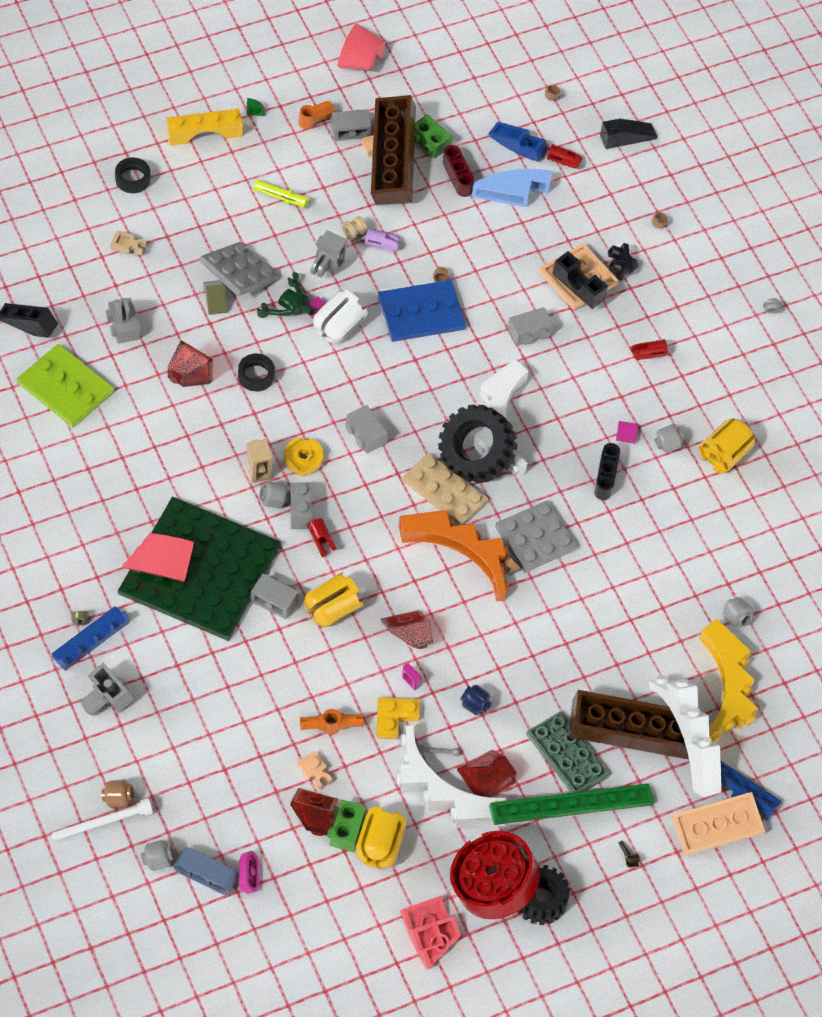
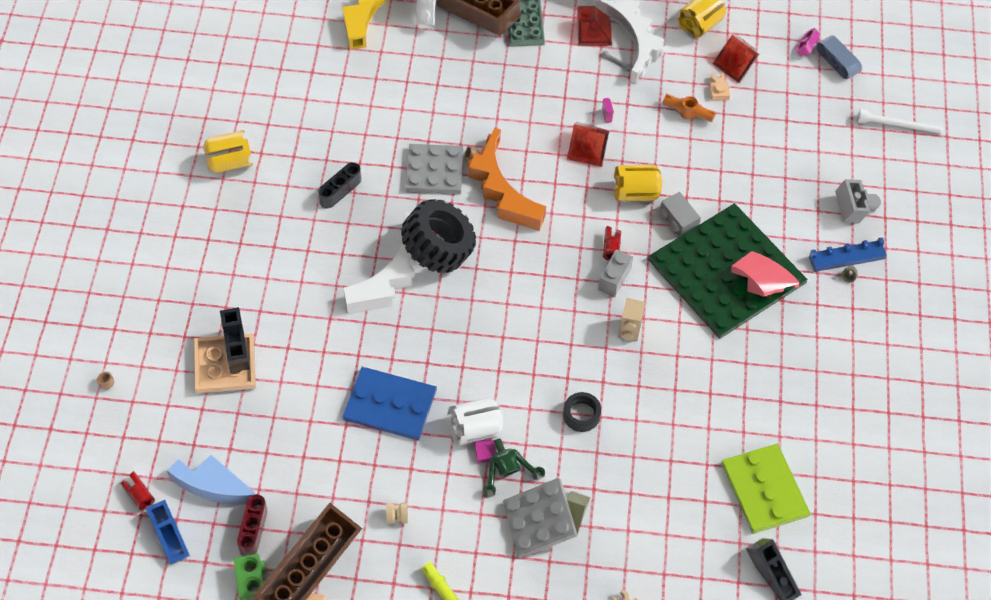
camera: 145 degrees left, 0 degrees up
(118, 793) = (880, 131): medium nougat head -> none
(123, 320) = (679, 522): light grey brick -> none
(157, 855) = (870, 79): light grey head -> none
(190, 366) = (644, 438): clear red slope -> none
(274, 494) = (631, 290): light grey head -> none
(303, 466) = (585, 327): yellow plate -> none
(330, 254) = (443, 486): light grey brick -> none
(350, 826) = (716, 38): bright green brick -> none
(366, 429) = (517, 312): light grey brick -> none
(382, 239) = (380, 490): lavender hinge -> none
(394, 710) = (635, 99): yellow plate -> none
(440, 274) = (347, 427): medium nougat hinge -> none
(444, 489) = (490, 247): tan plate -> none
(476, 699) = (569, 72): dark blue head -> none
(530, 326) = (306, 335): light grey brick -> none
(552, 92) = (87, 572): medium nougat hinge -> none
(622, 261) = (175, 354): black hips -> none
(625, 132) = (56, 486): black slope -> none
(626, 432) = (295, 212): dark pink tile -> none
(650, 349) = (217, 266): red hinge -> none
(669, 438) = (267, 186): light grey head -> none
(738, 612) = (325, 42): light grey head -> none
(772, 305) = (80, 253): light grey plate -> none

